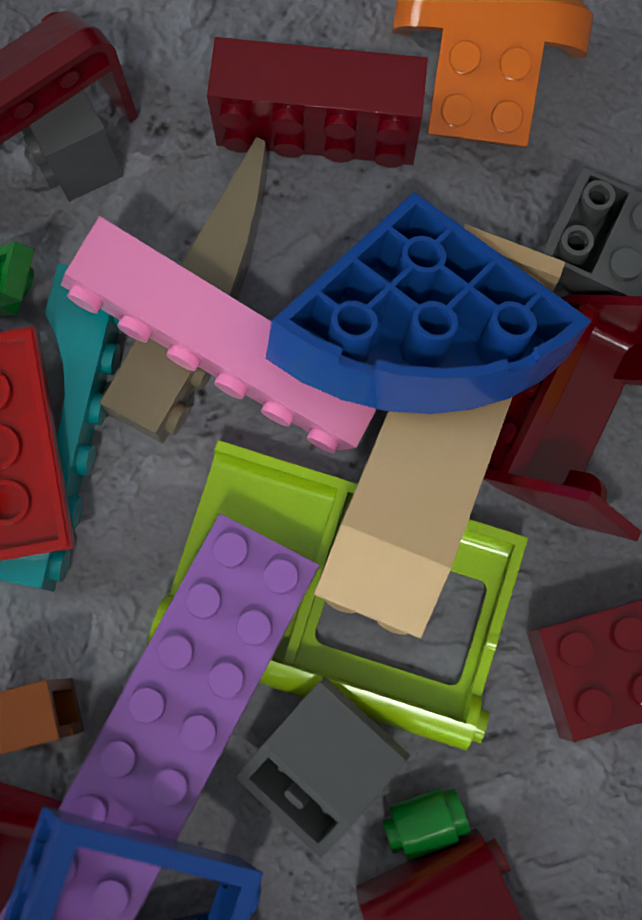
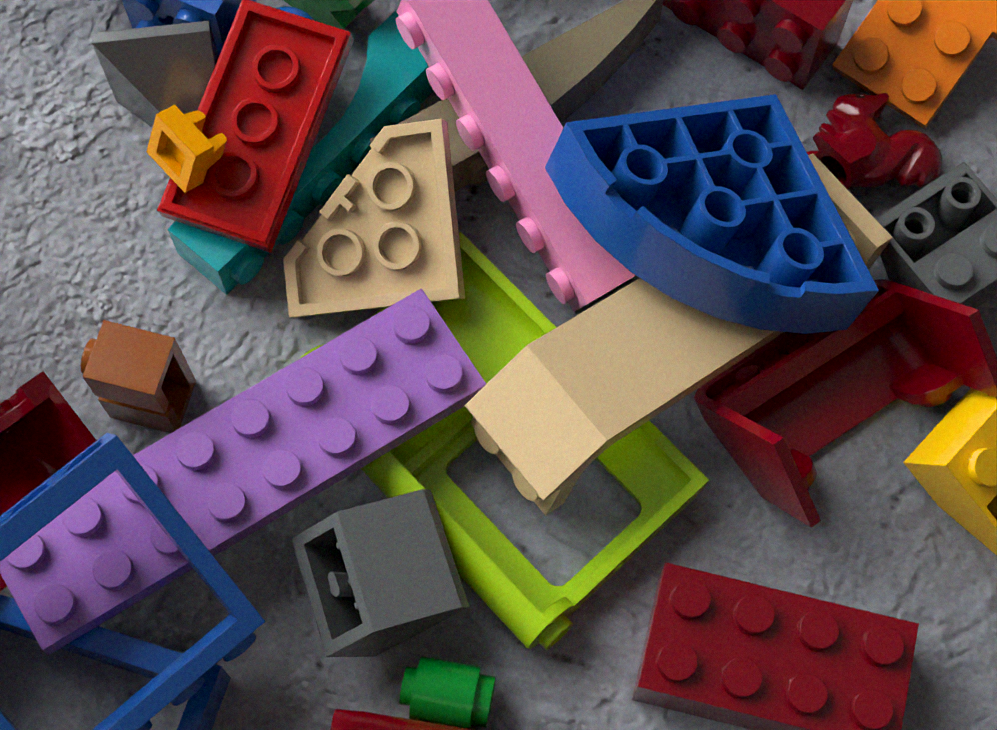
camera: 30 degrees right, 10 degrees down
(157, 477) = (383, 230): none -> tan plate
(497, 198) = (865, 155): none -> dark red animal

